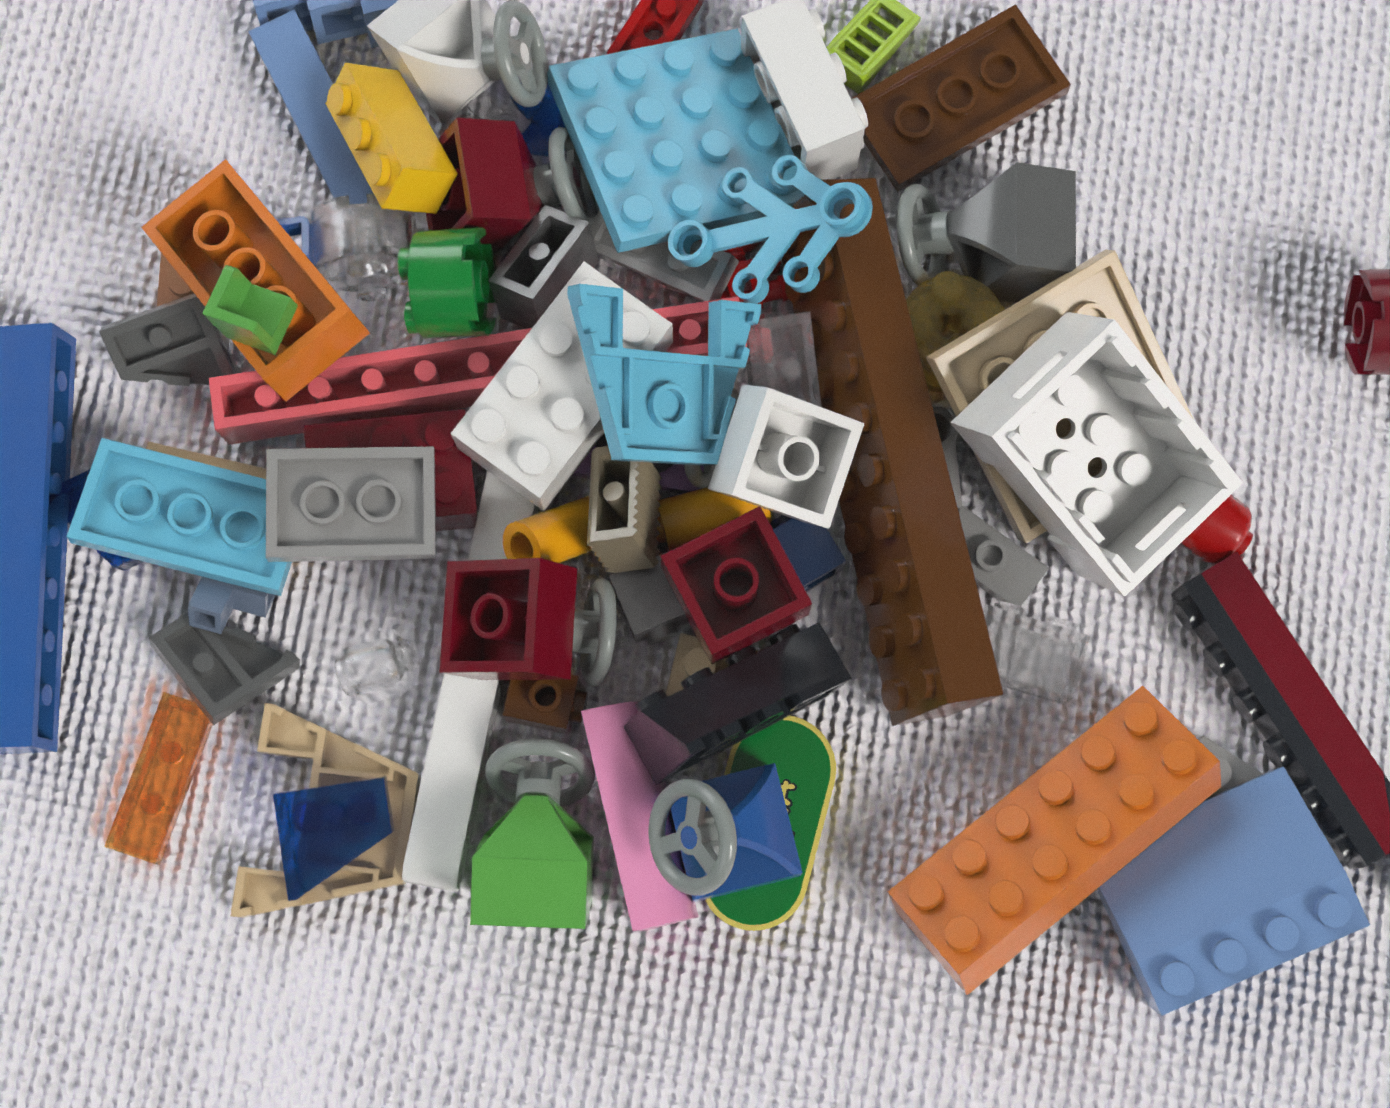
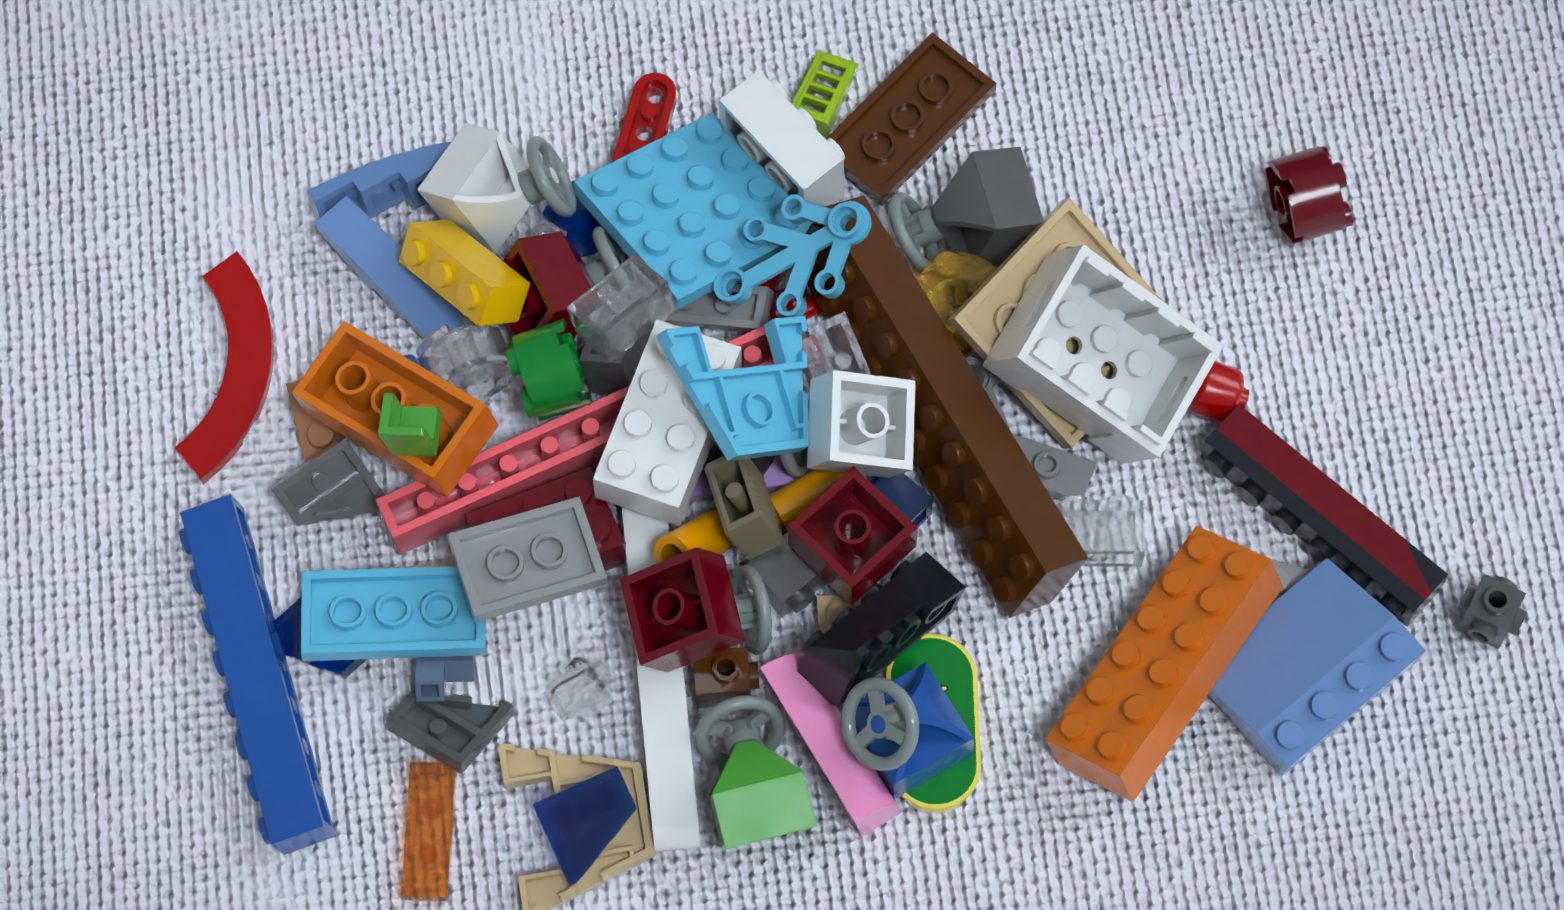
camera: 15 degrees left, 10 degrees down
(127, 183) = (246, 372): none -> red tile
(553, 233) = (621, 308): none -> clear brick

